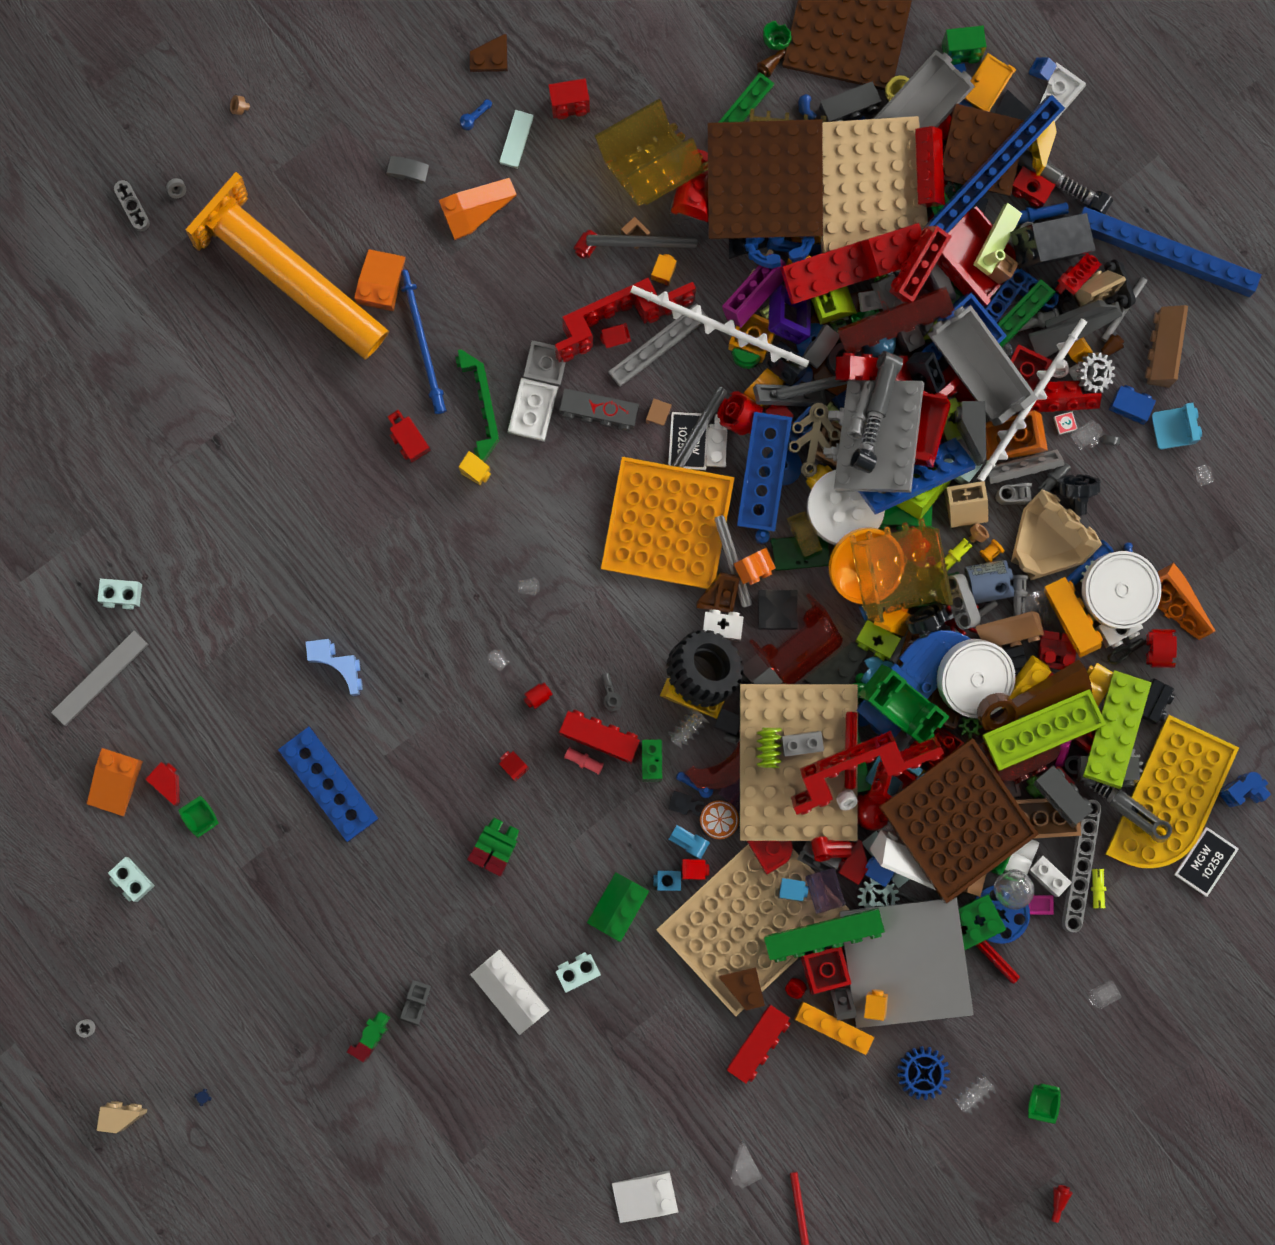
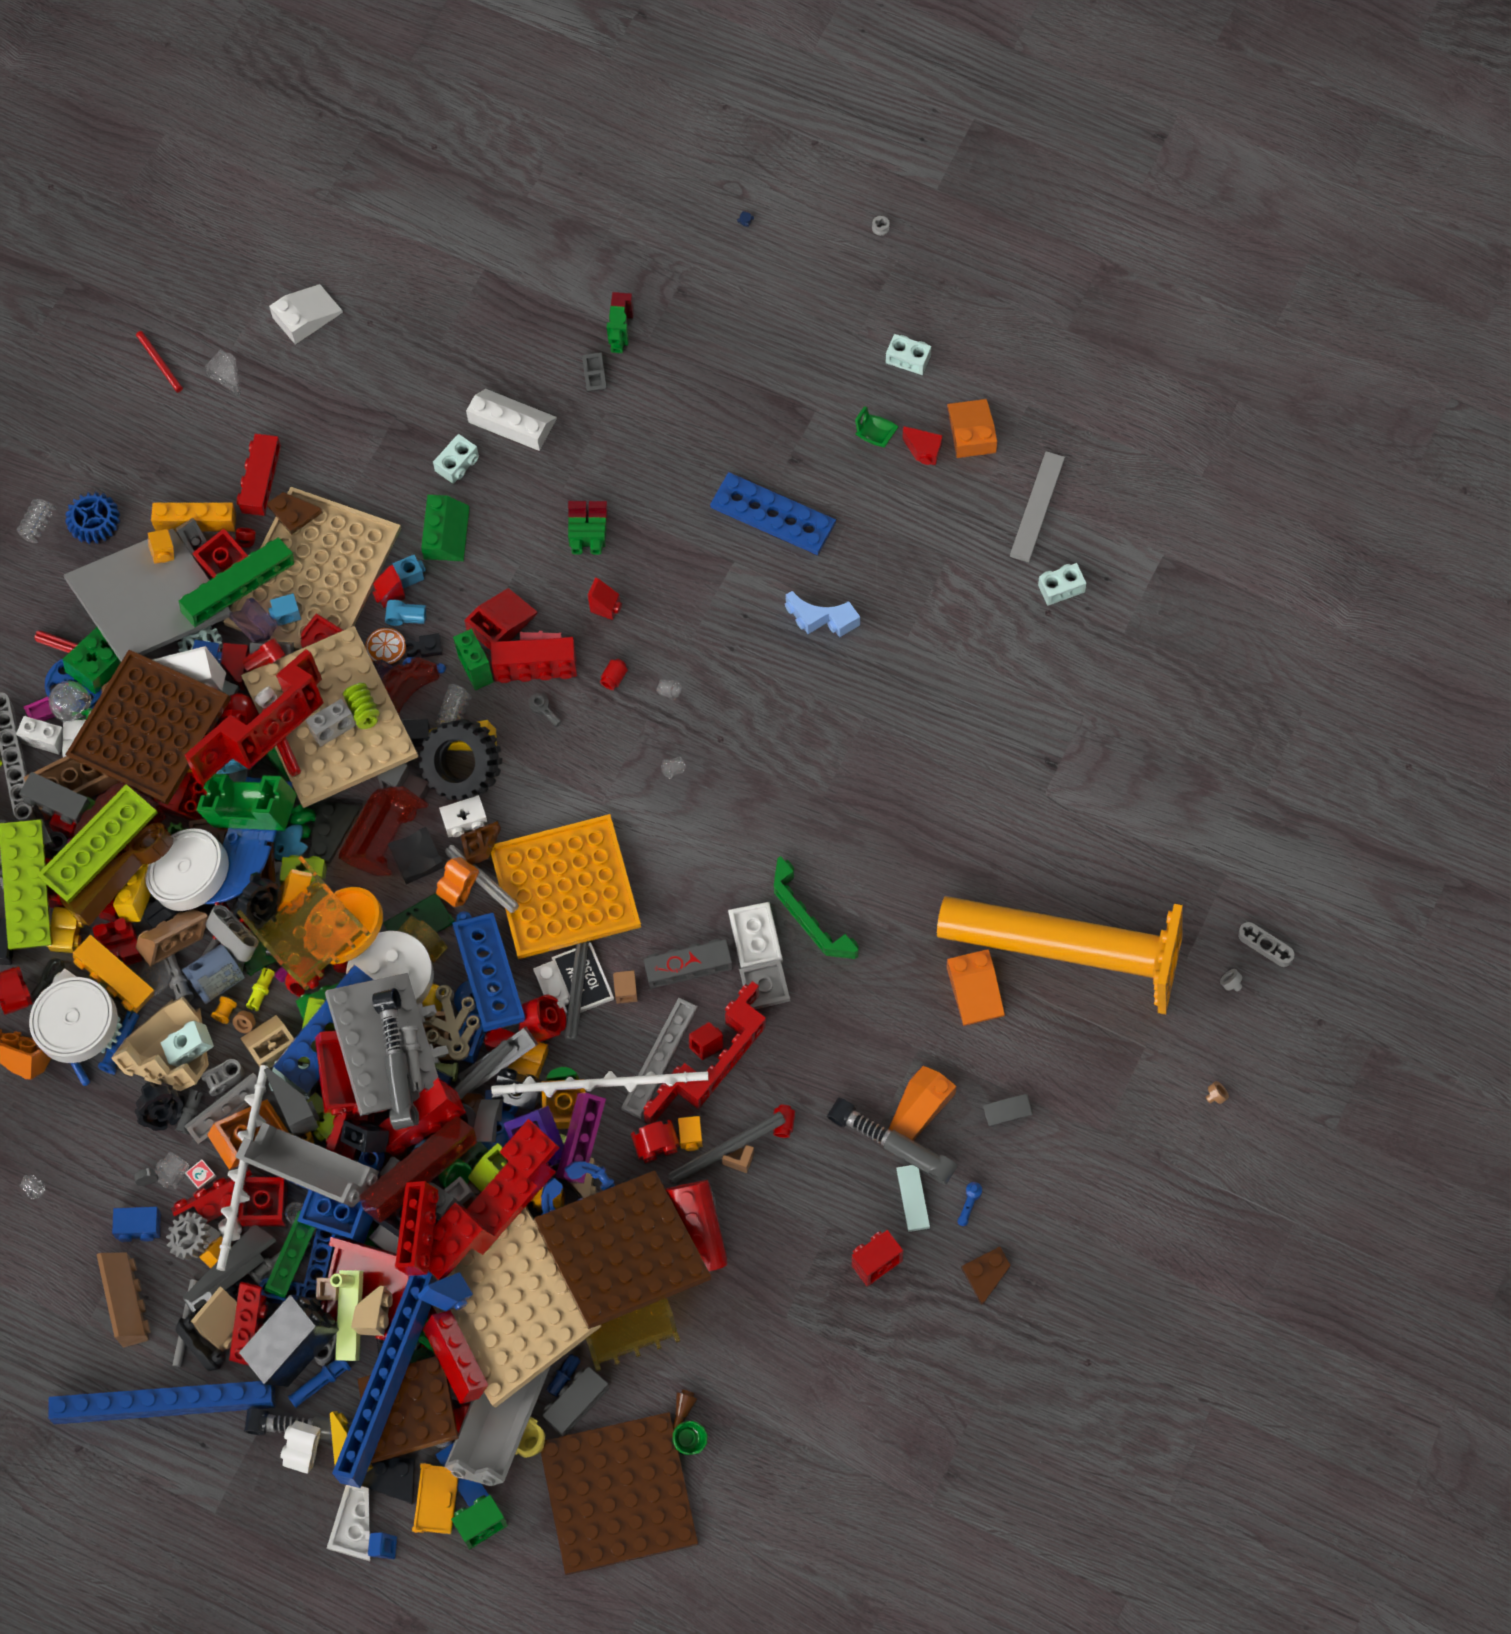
camera: 160 degrees right, 15 degrees down
(116, 1118) = (808, 166): tan slope -> none
(408, 437) = (864, 849): red brick -> none
(435, 394) = (859, 904): blue bar -> none
(474, 468) = (781, 845): yellow slope -> none
(487, 147) = (935, 1165): none -> piece
(609, 794) = (500, 618): none -> red slope
(649, 154) = (757, 1231): clear yellow windscreen -> none
(696, 270) = (655, 1140): none -> red brick
(749, 99) = (690, 1345): green plate -> none
(804, 107) = (624, 1377): blue arm -> none
(914, 211) = (447, 1293): none -> blue slope
(982, 224) = (372, 1313): none -> tan slope
(1029, 178) = (328, 1394): red brick -> none
(1044, 528) = (187, 1043): none -> light aqua brick
(1075, 165) = (301, 1446): none -> white brick
(1112, 345) = (182, 1277): reddish brown cone -> none
(1176, 427) = (81, 1222): medium azure bracket -> none

